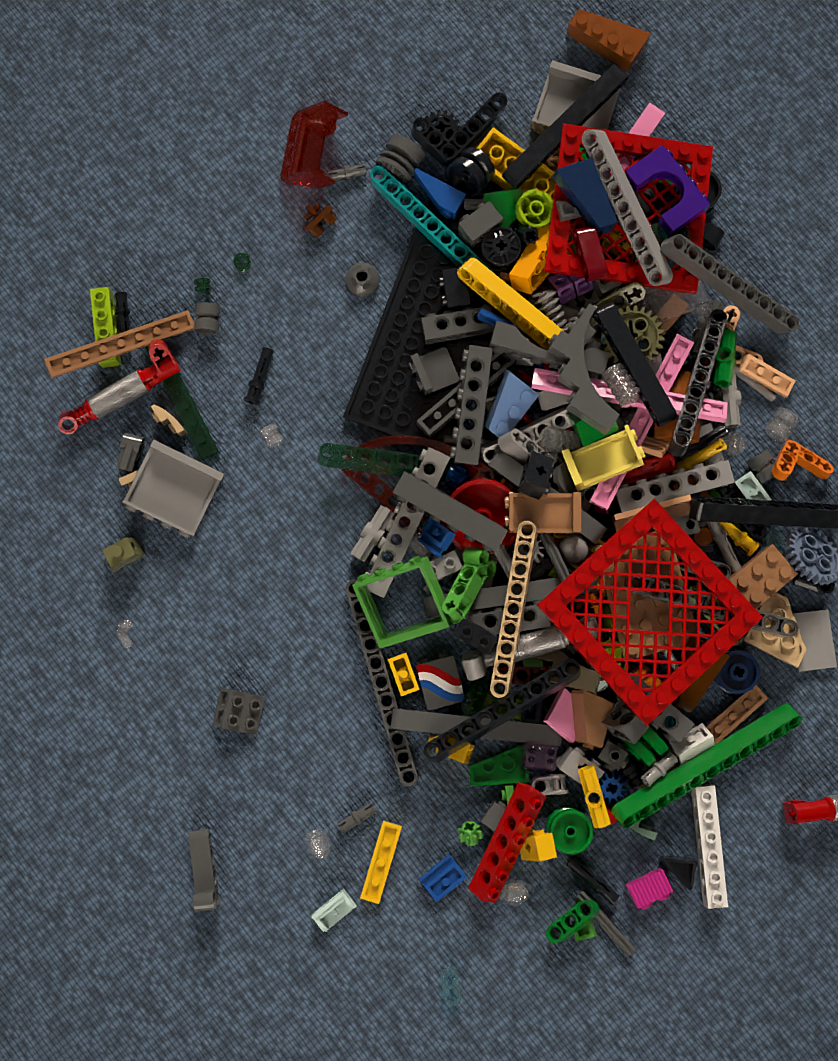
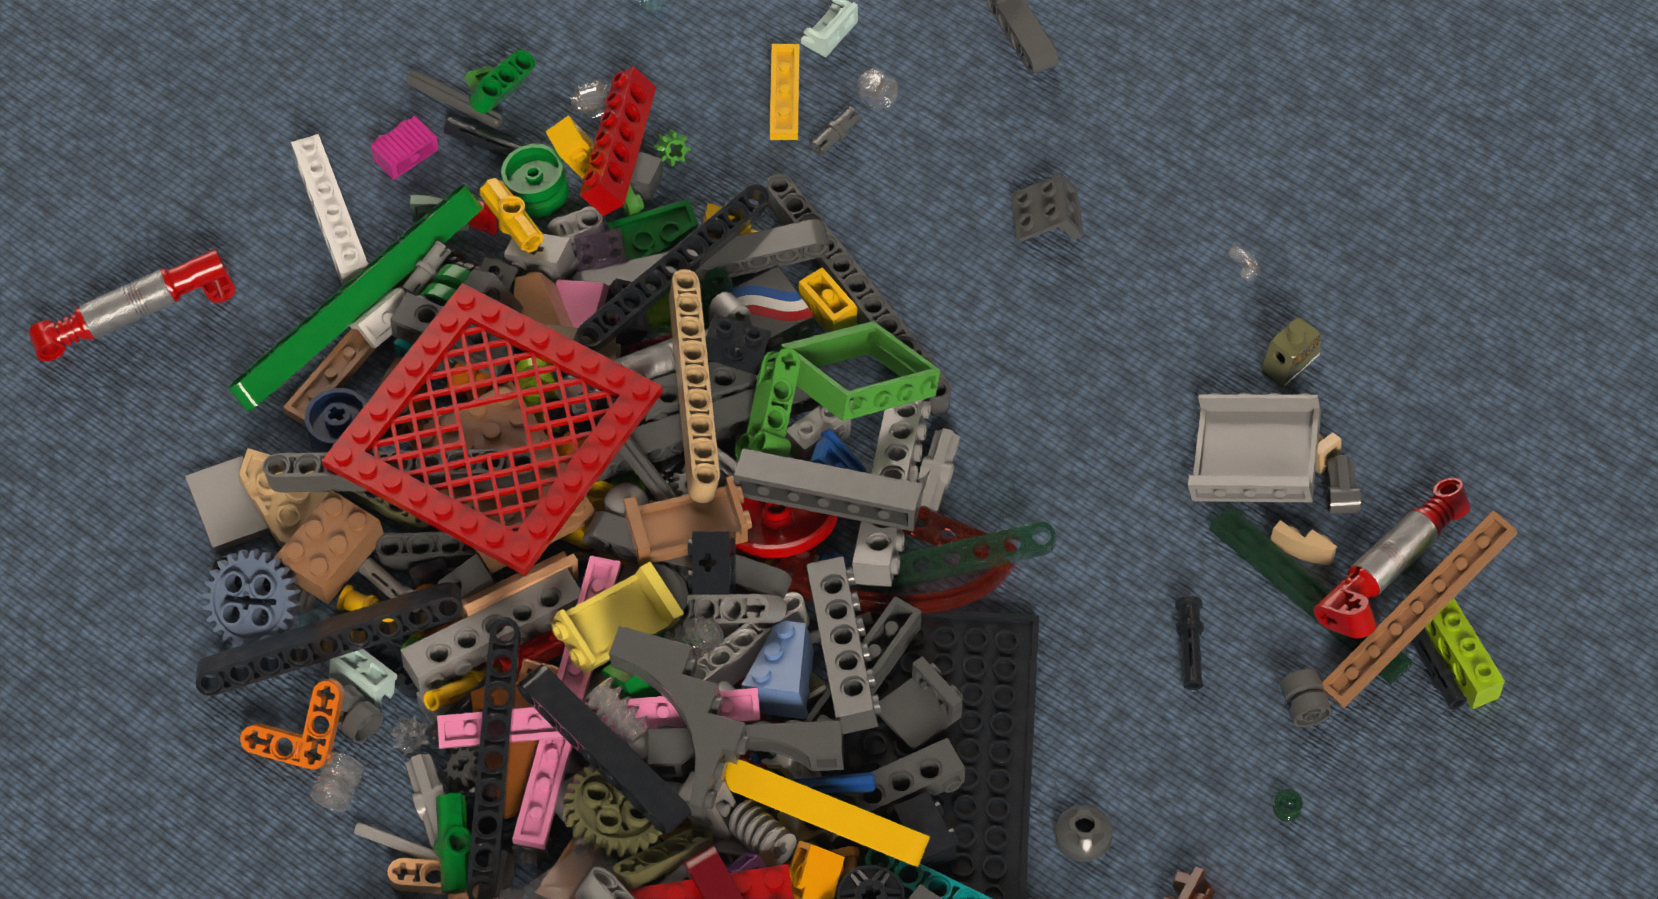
camera: 165 degrees right, 25 degrees down
(202, 284) = (1335, 749): clear green bush -> none
(271, 436) = (1138, 563): clear wheel -> none
(442, 877) = (693, 94): blue plate -> none
(617, 790) = (486, 242): blue gear -> none
(682, 867) = (368, 179): black slope -> none
(766, 375) = (377, 852): light nougat tile -> none

